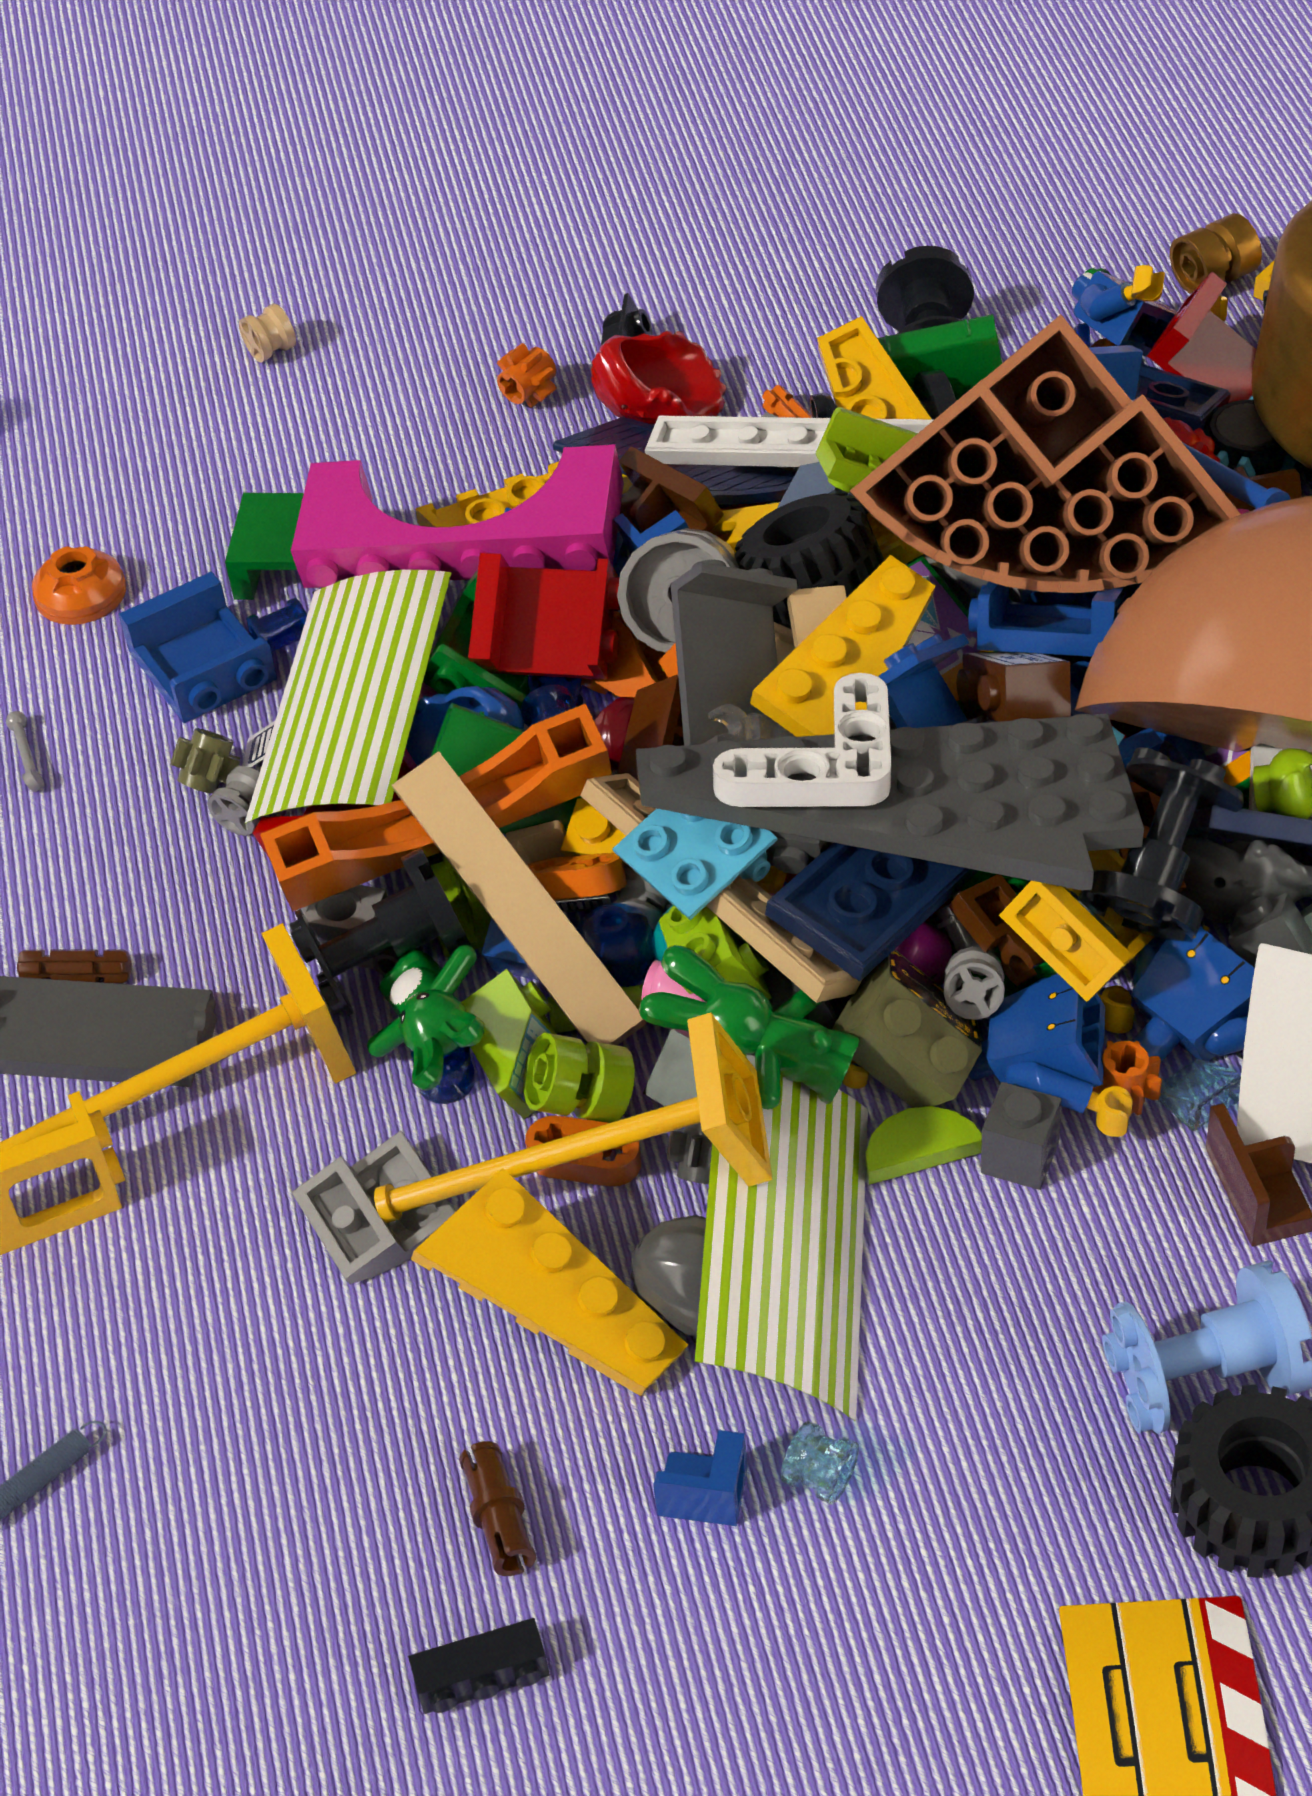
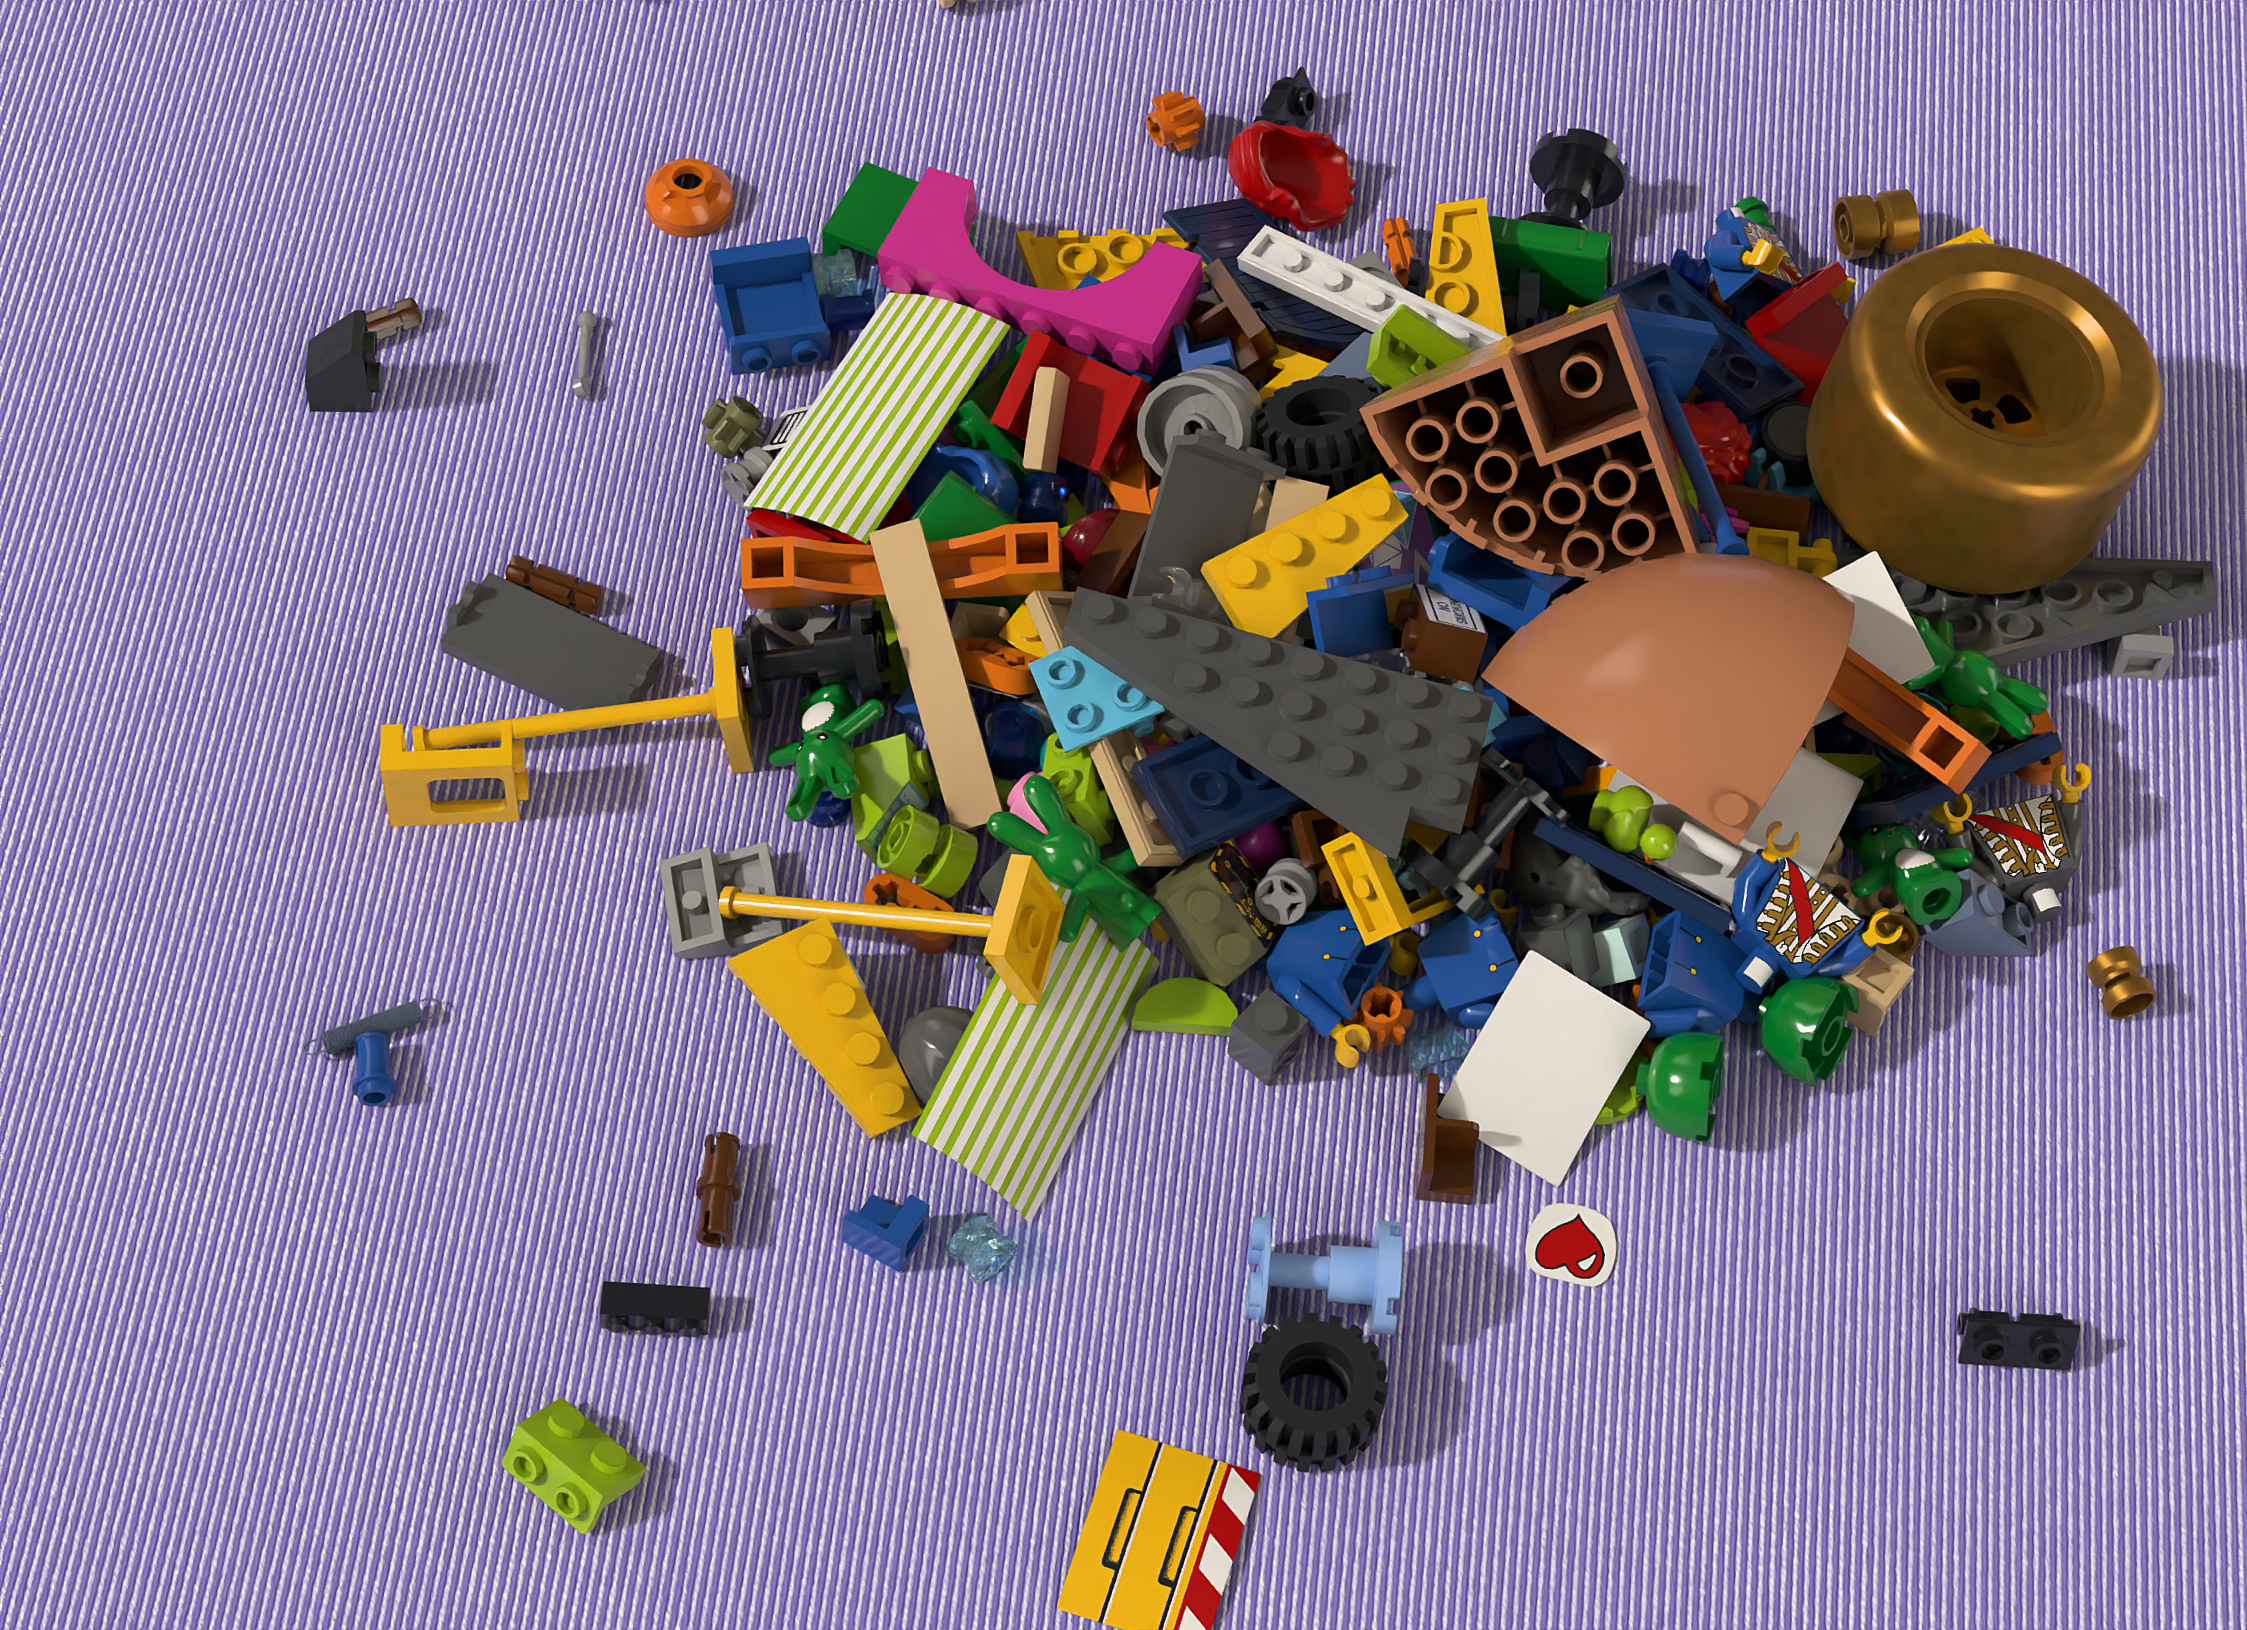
camera: 10 degrees right, 10 degrees up
(57, 1532) = (373, 1080): none -> blue pin
(251, 597) = (834, 273): none -> clear light blue wheel
(523, 636) = (1046, 420): none -> tan tile
(743, 772) = (1228, 671): white beam -> none

